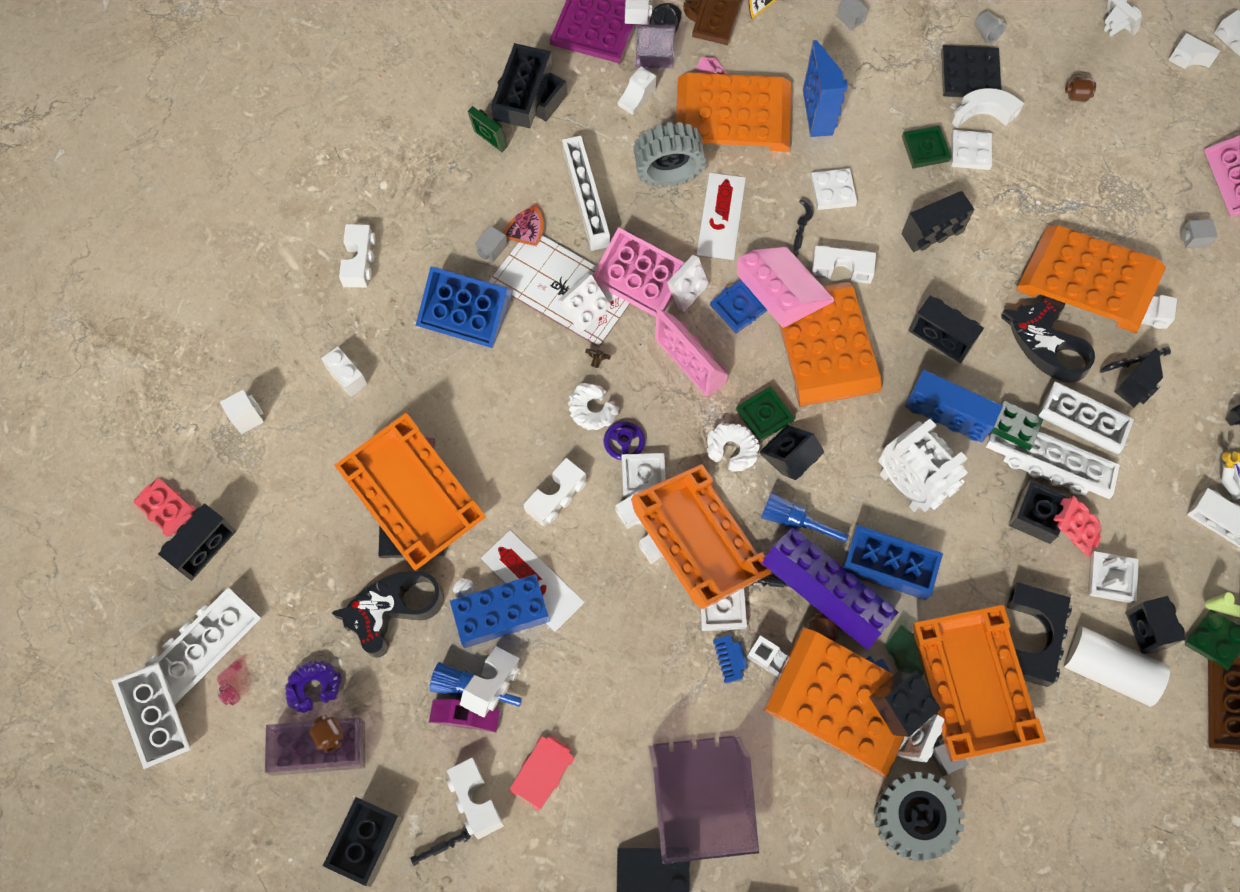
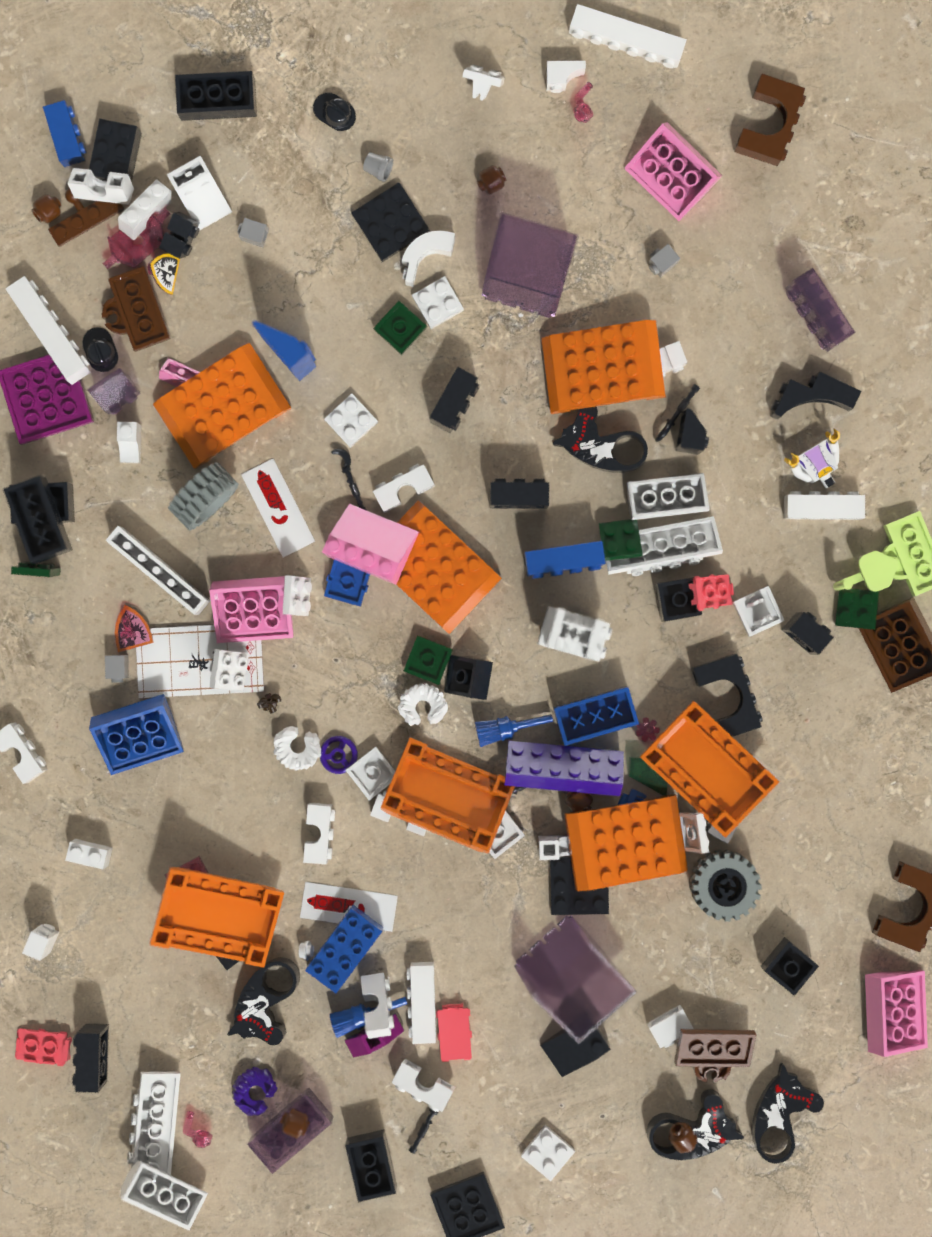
camera: 30 degrees left, 20 degrees up
(534, 717) = (422, 1002): none -> white brick
(689, 353) = (339, 653): bright pink slope -> none
(735, 656) = (530, 859): blue piece -> none
(755, 725) = (566, 899): none -> black plate
(905, 702) = (668, 819): black brick -> none
(931, 611) = (643, 729): none -> clear pink plant
(1079, 155) = (528, 265): none -> clear purple windscreen
(1117, 666) = (797, 677): white brick -> none
(1192, 87) = (582, 111): none -> clear pink plate

